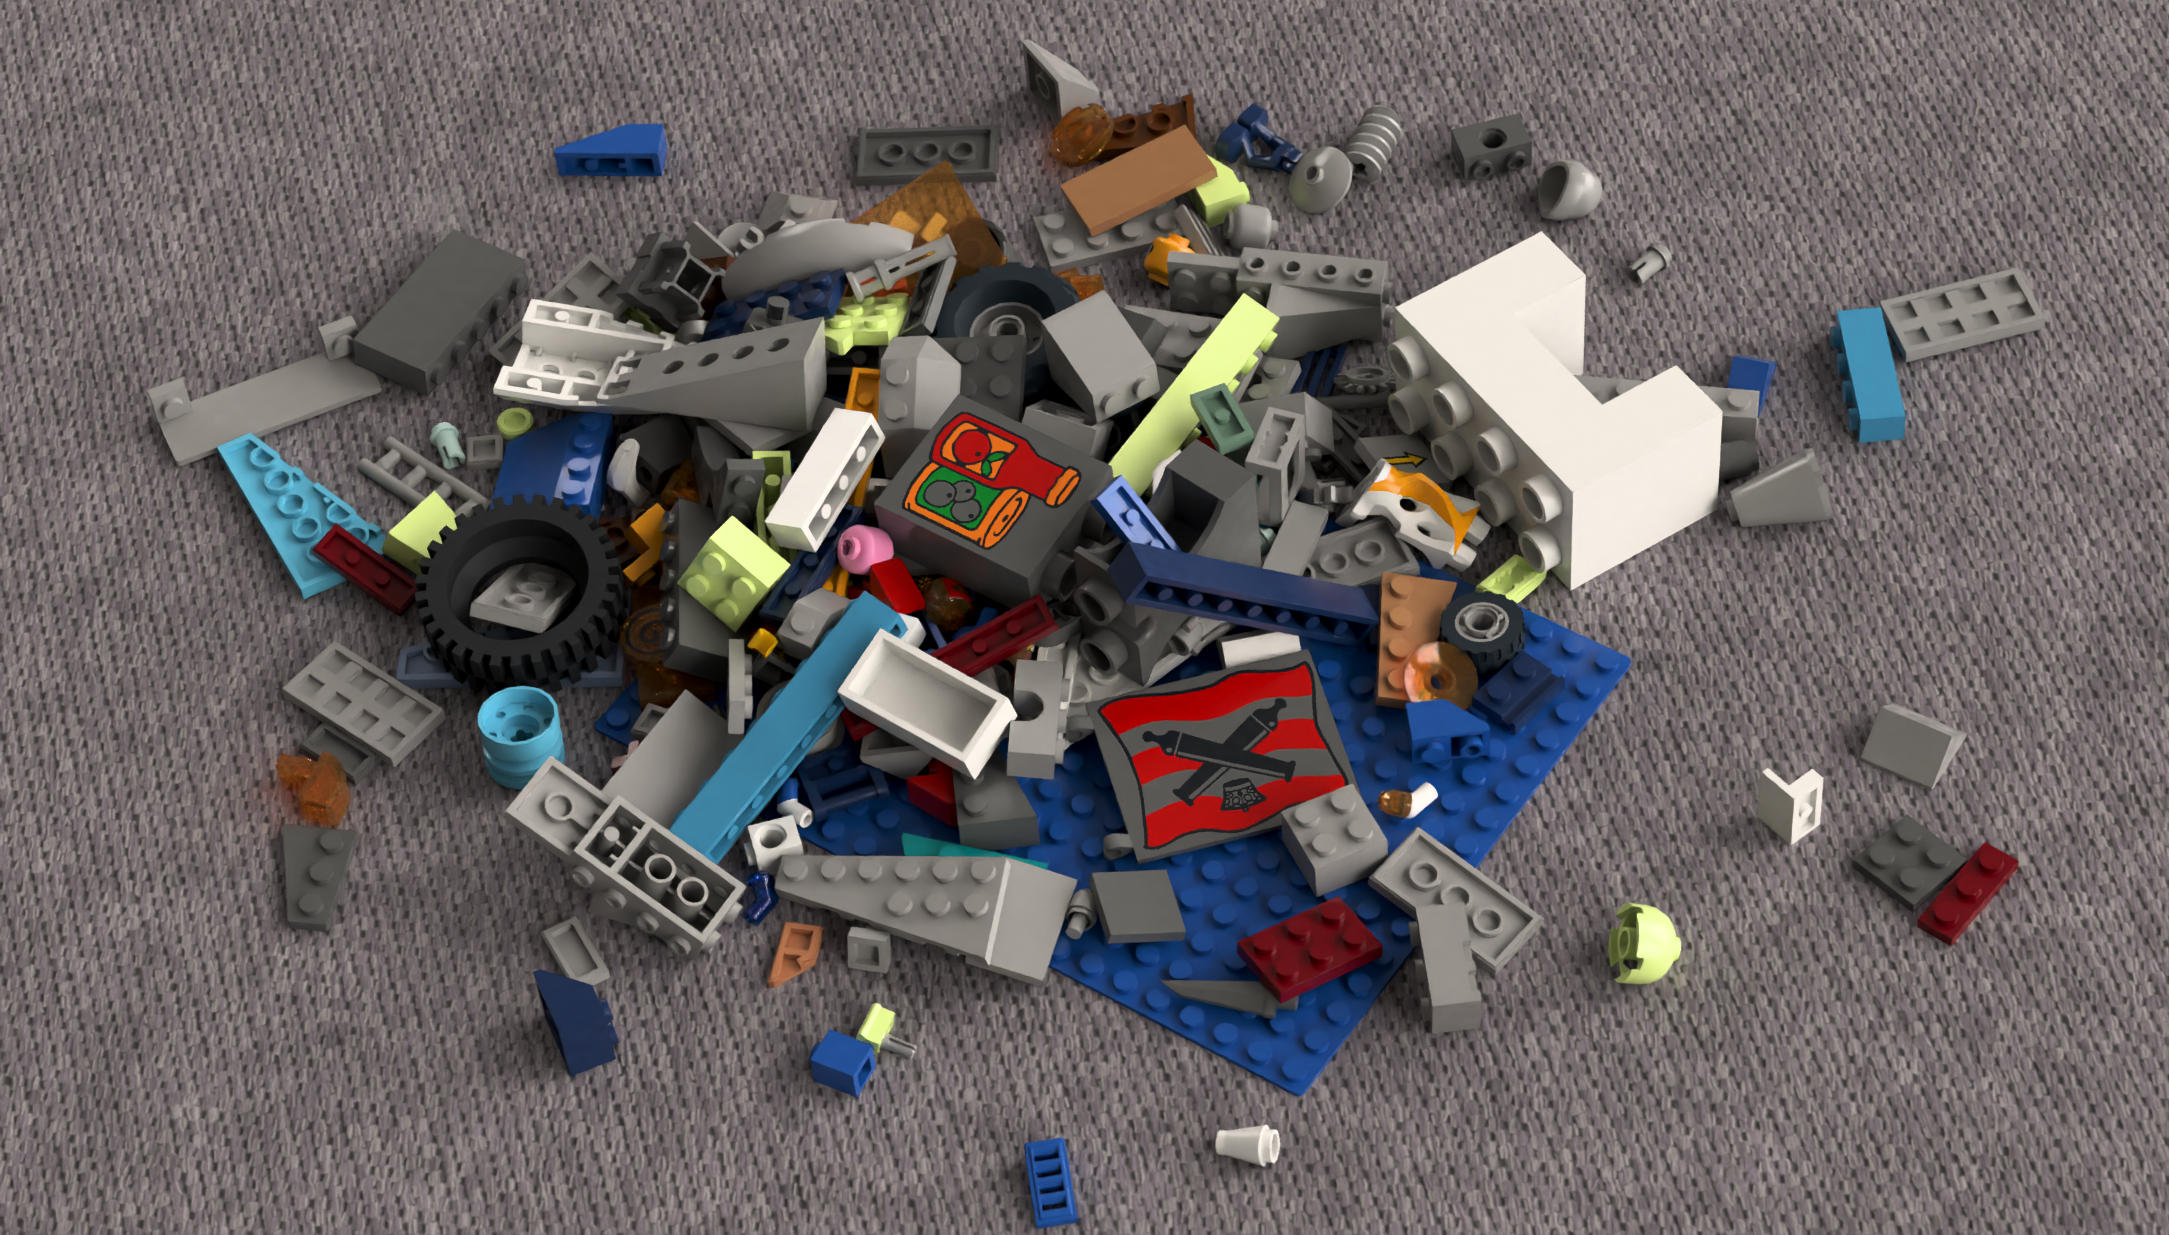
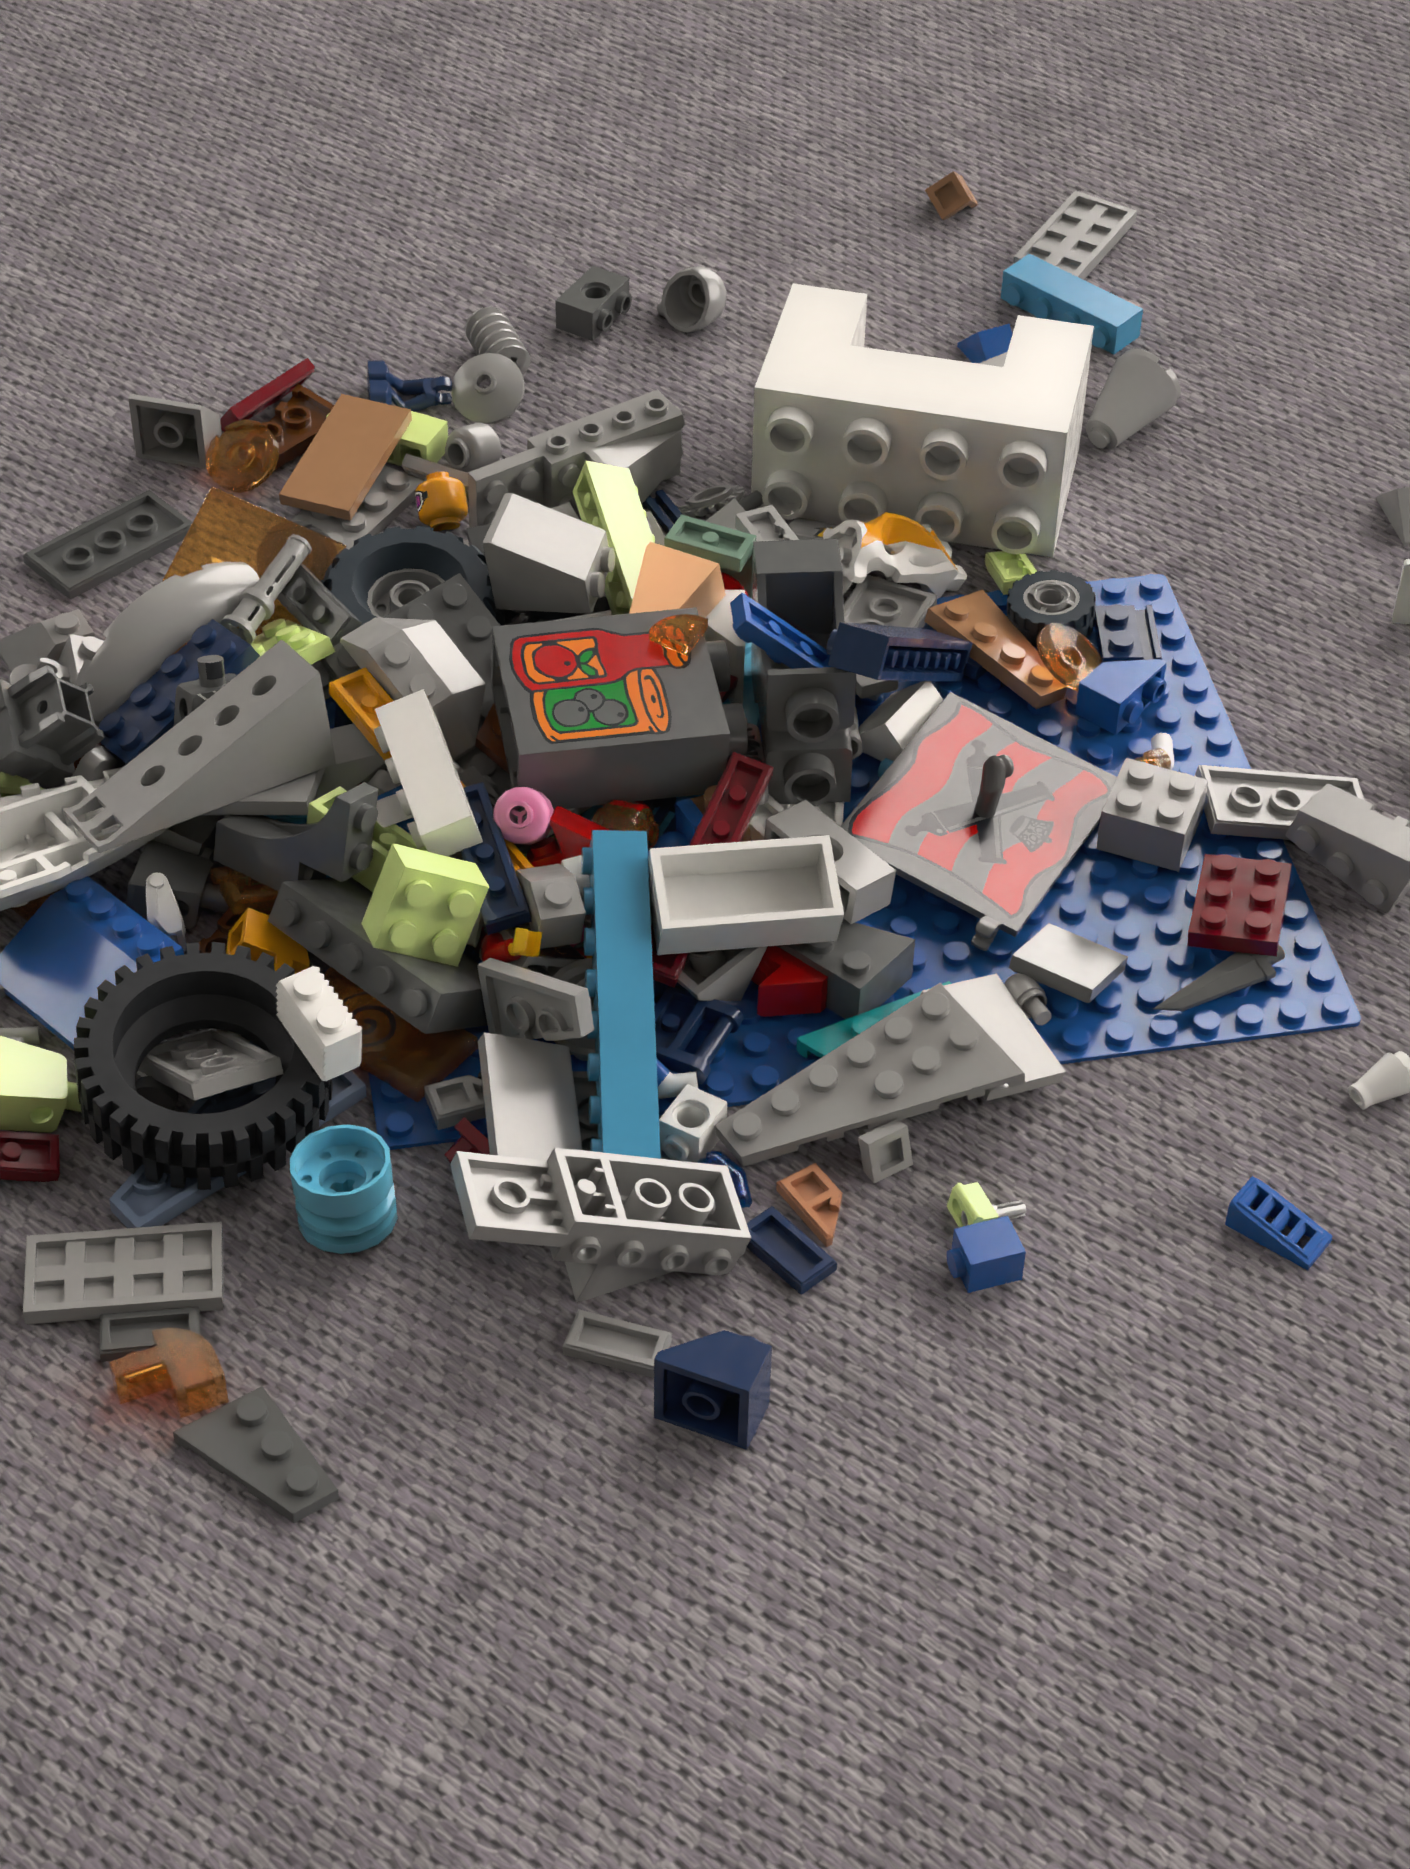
camera: 50 degrees left, 5 degrees down
(579, 613) = (319, 1023): none -> white brick
(740, 970) = (788, 1251): none -> dark blue tile
(1072, 478) = (679, 632): none -> clear orange tile
(1140, 442) = (676, 581): none -> light nougat slope
(1160, 90) = (268, 394): none -> dark red tile
(1226, 738) = (993, 780): none -> dark grey arm
(1908, 211) = (950, 195): none -> medium nougat panel

